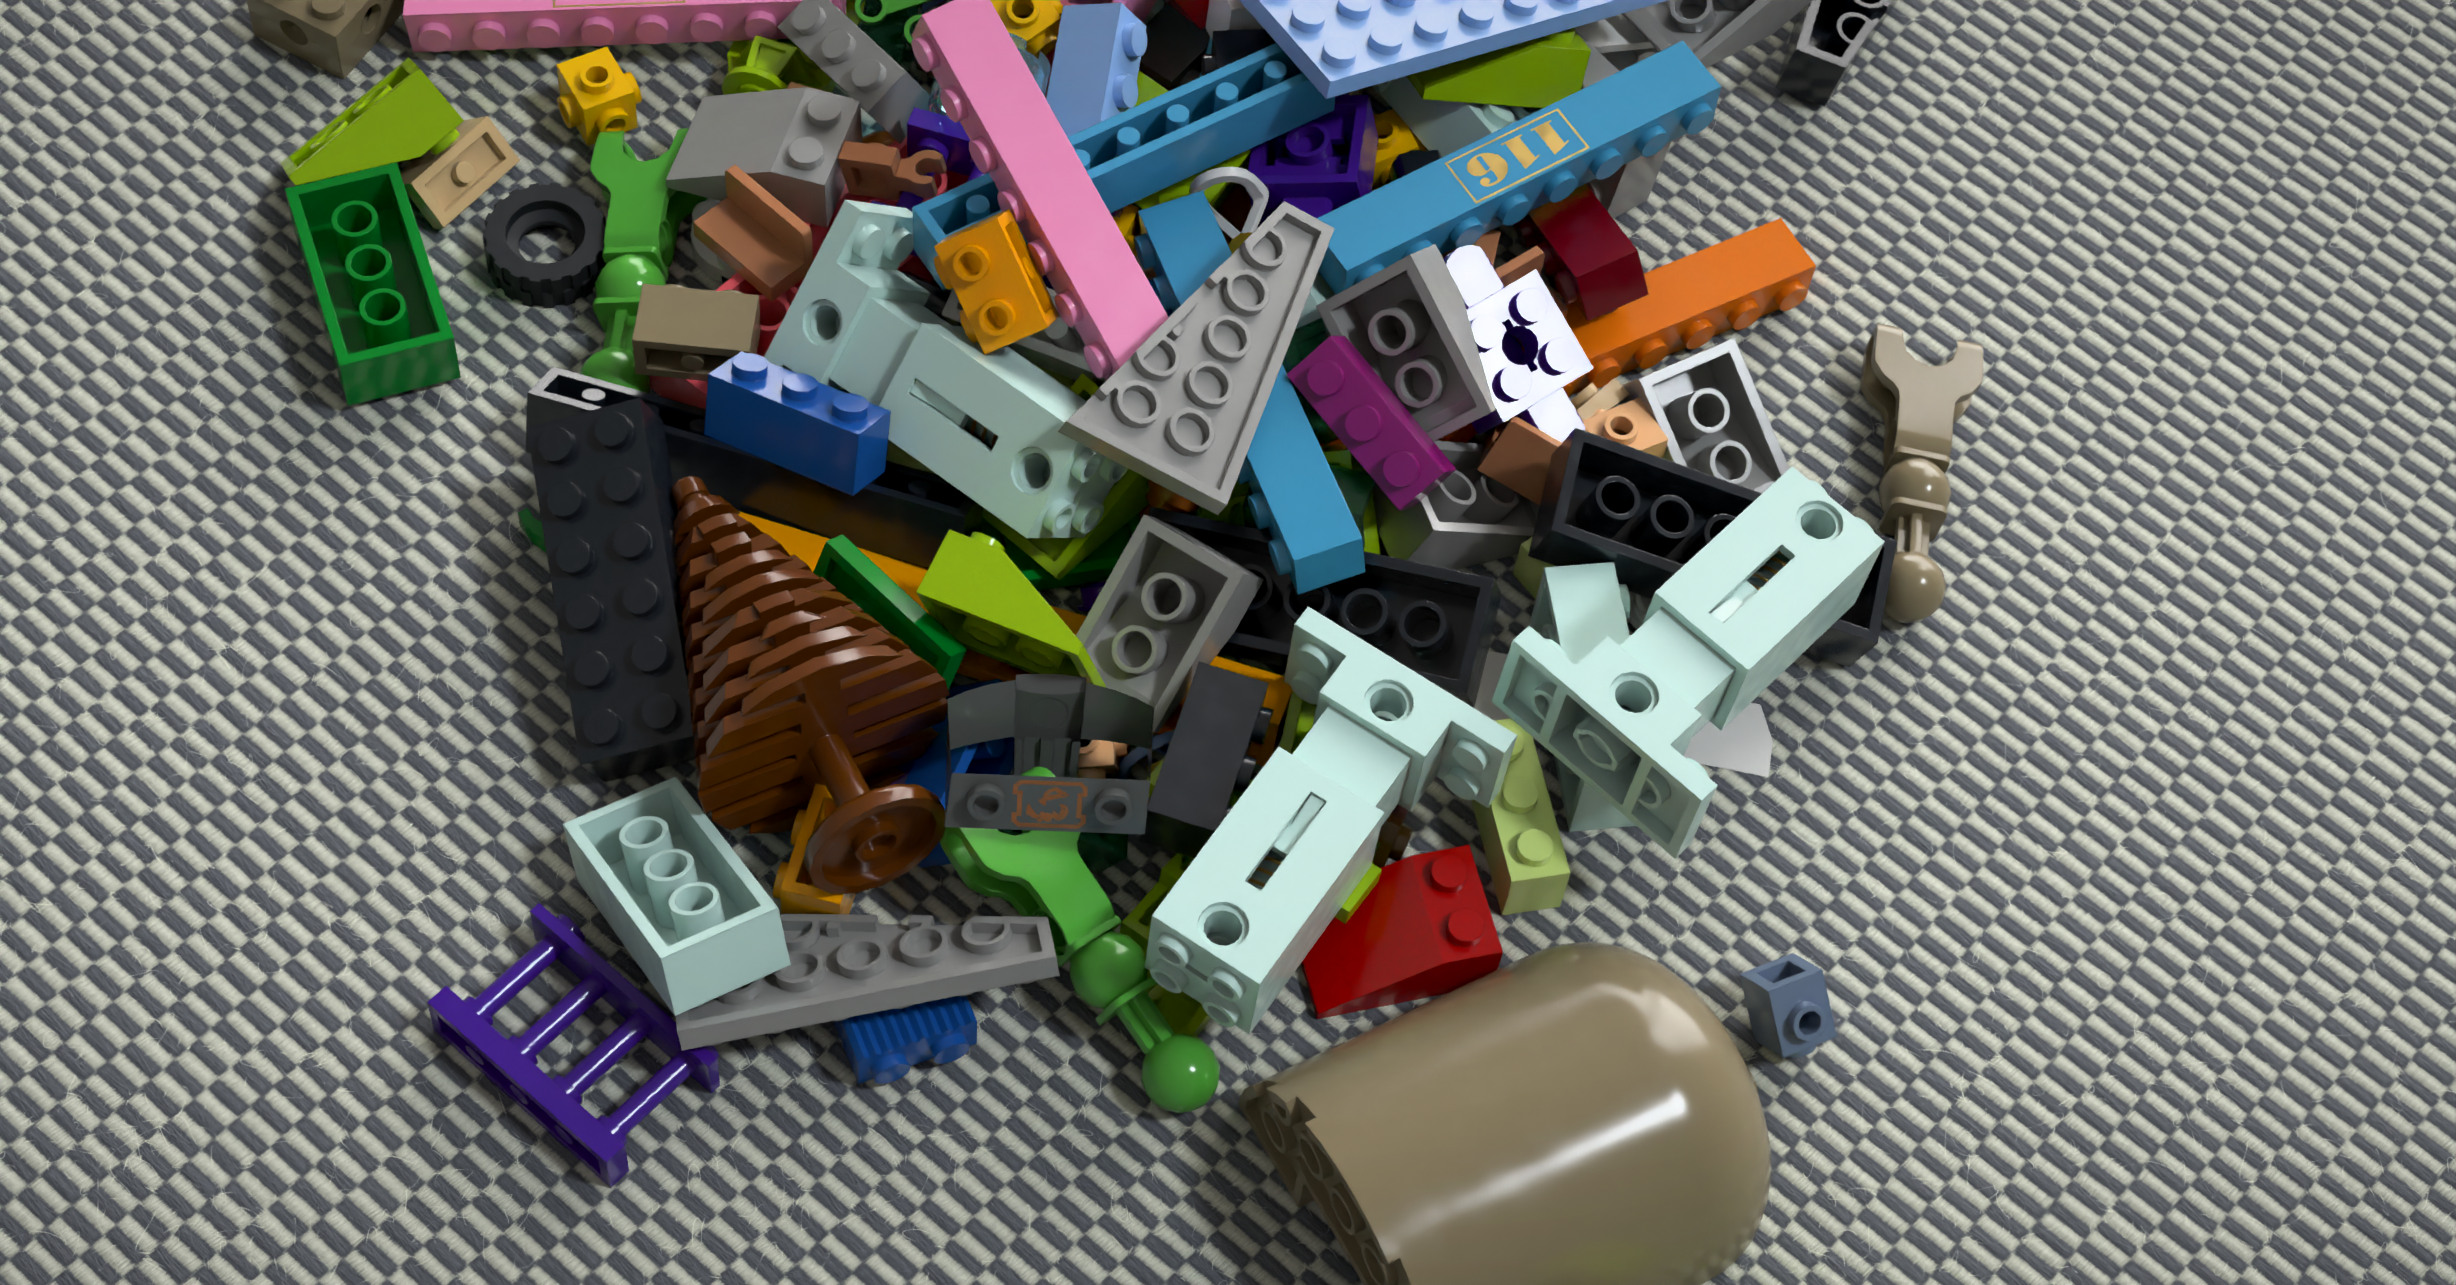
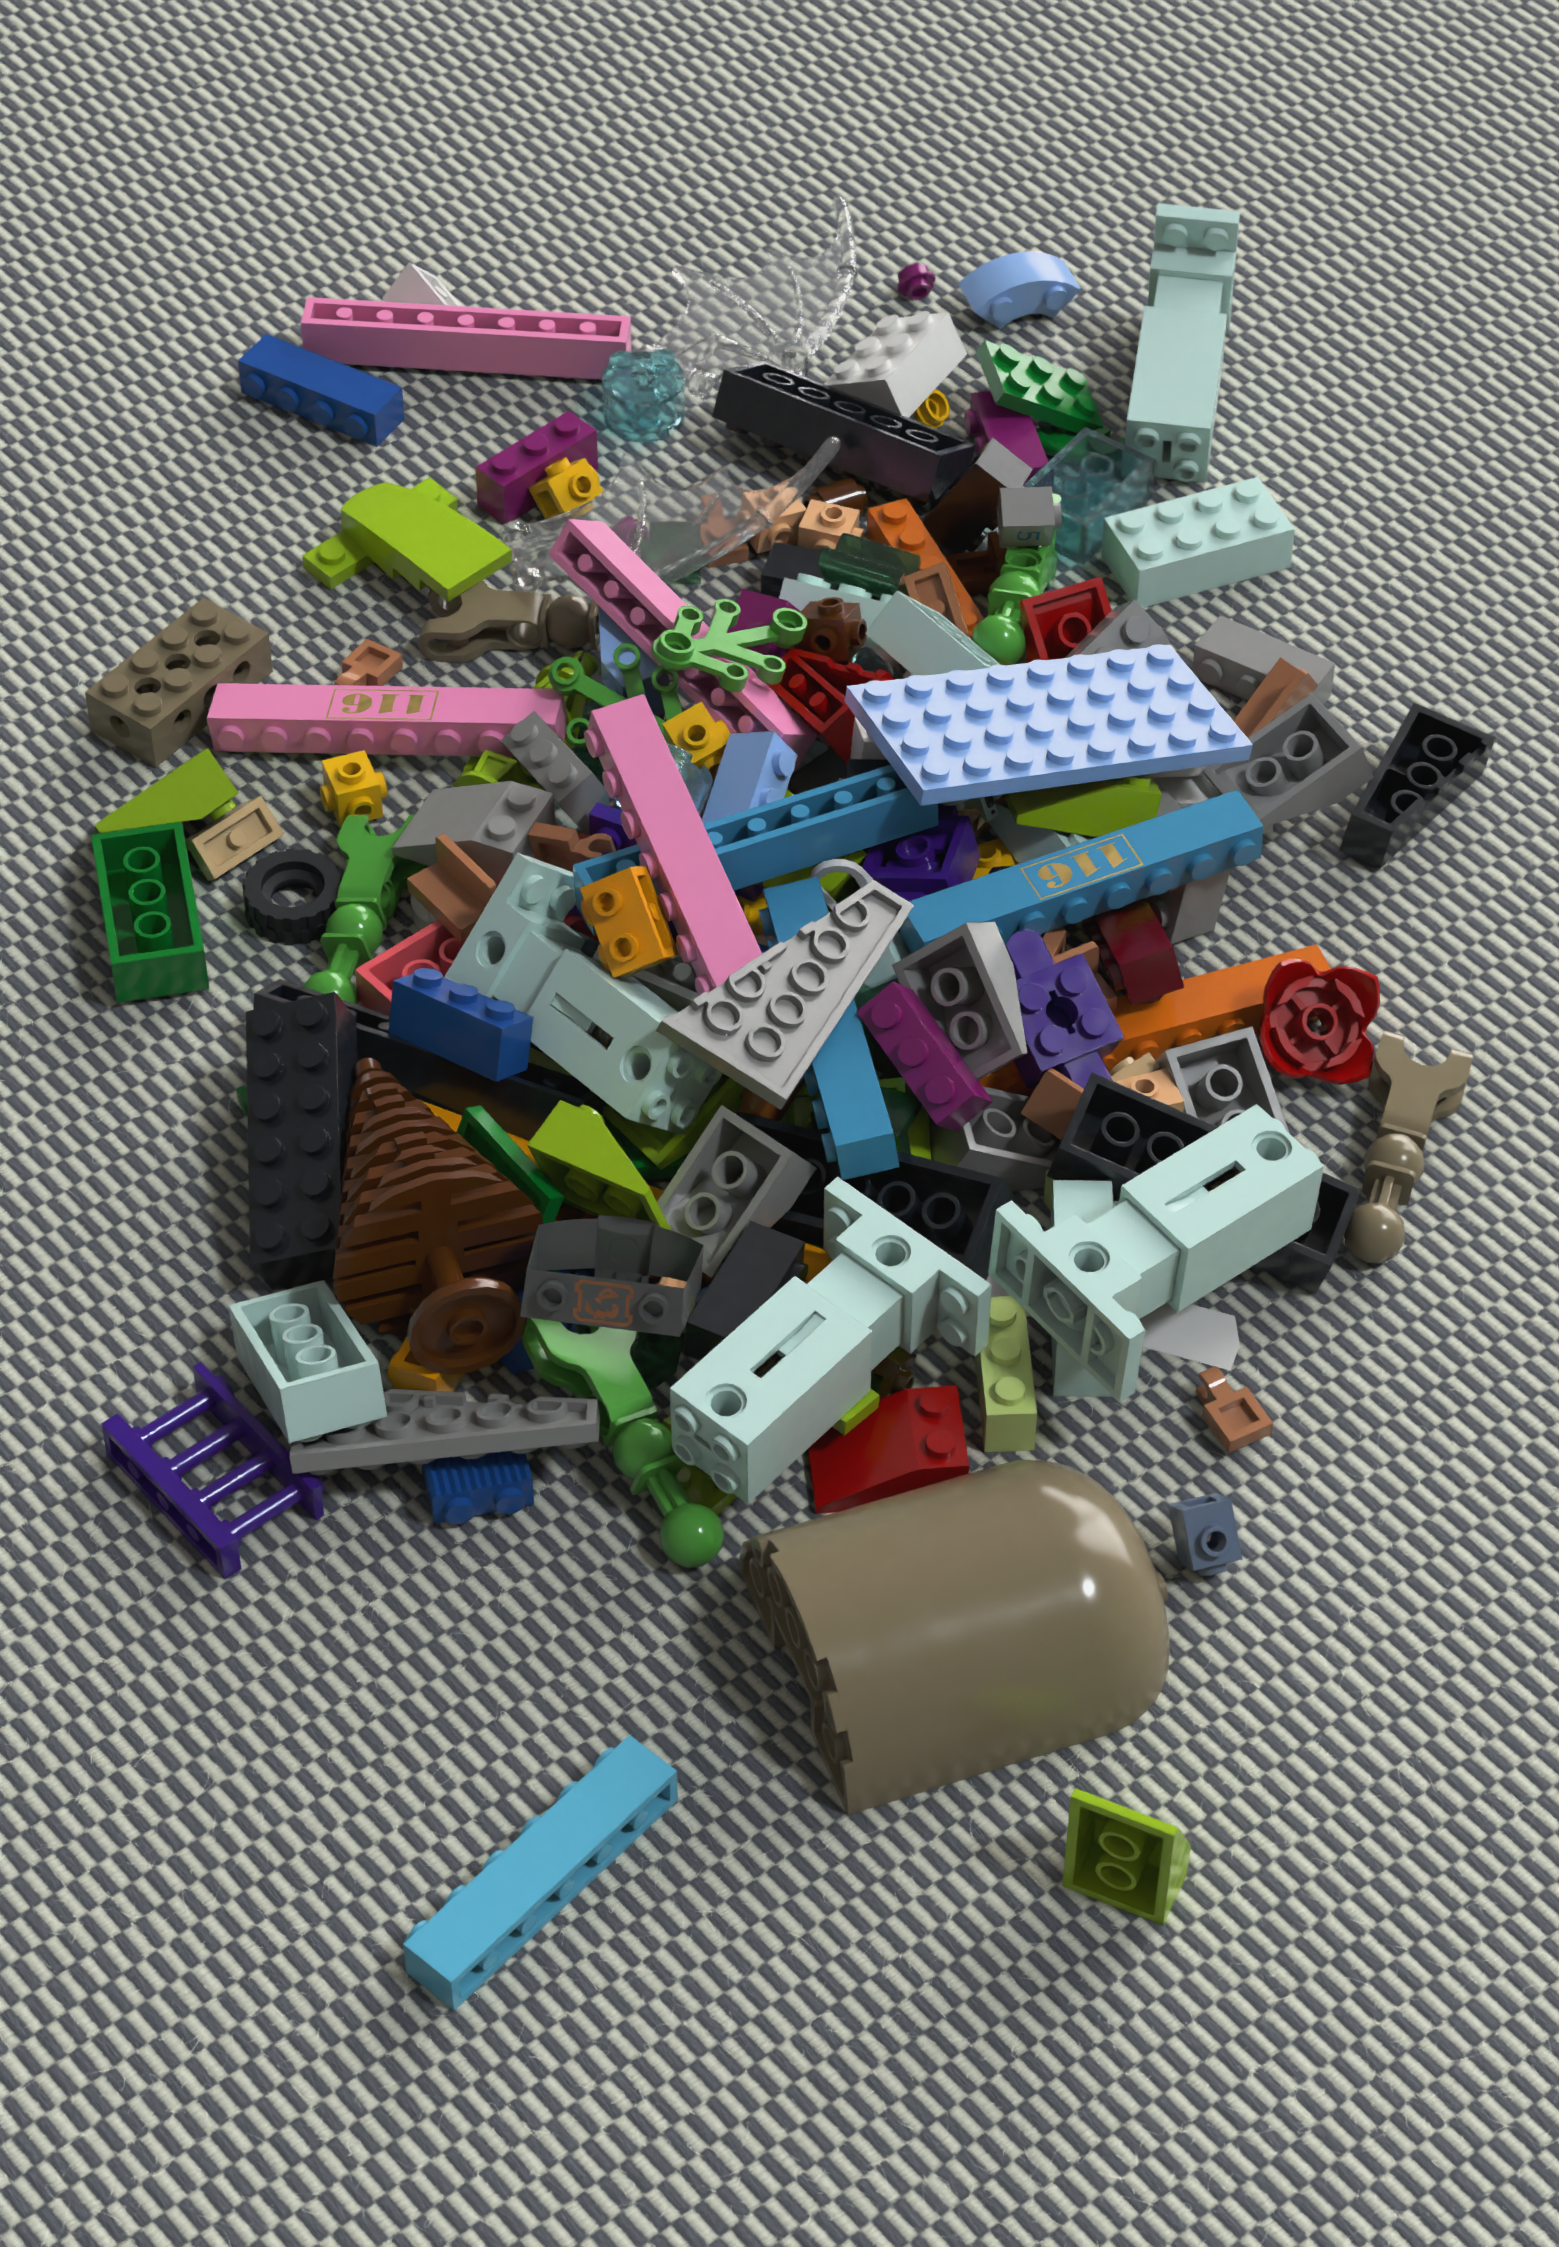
camera: 15 degrees right, 10 degrees down
(692, 330) = (388, 950): dark tan brick -> none
(1785, 841) = (1231, 1415): none -> nougat plate
(1829, 297) = (1344, 1003): none -> red brick

